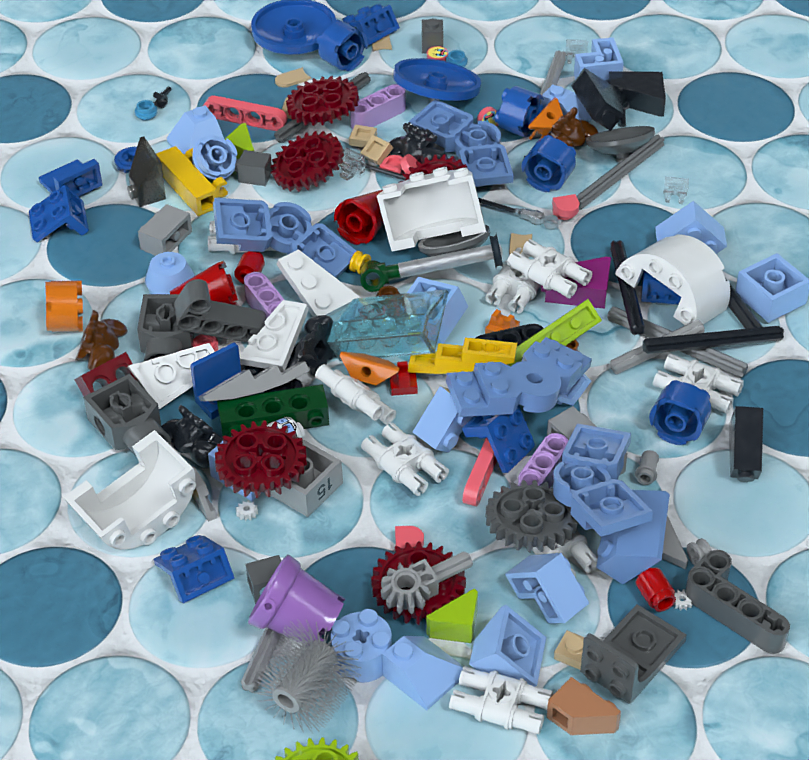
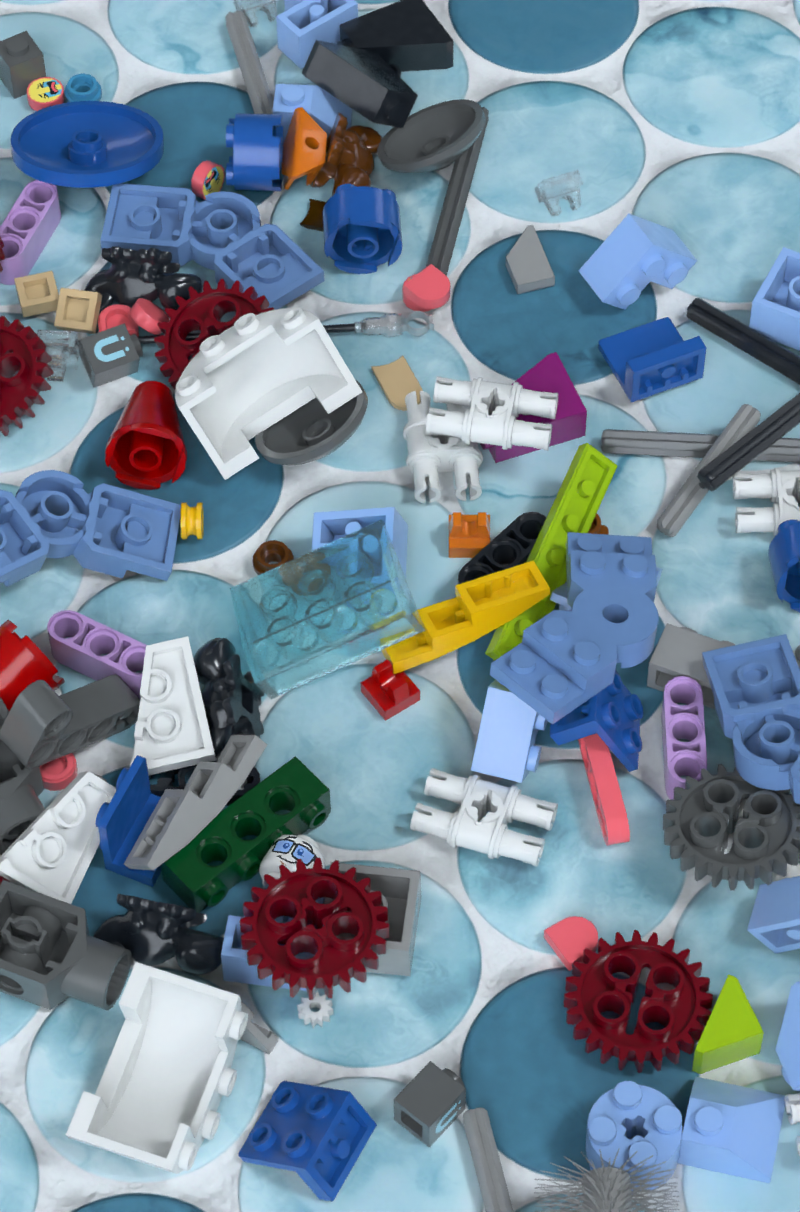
camera: 30 degrees left, 10 degrees up
(249, 263) = (30, 605): red brick -> none
(294, 596) = (516, 1127): medium lavender piece -> none
(315, 285) = (157, 592): white wing -> none
(355, 394) = (349, 748): white pin -> none
(368, 367) = (338, 694): orange piece -> none
(375, 173) = (110, 355): none -> dark grey brick
(422, 581) = (661, 1002): light grey gear -> none
(428, 264) = (238, 532): piece -> none
(627, 291) = (605, 390): black axle -> none
(633, 217) = (529, 264): none -> light grey tile
(688, 270) = (676, 328): white cylinder -> none

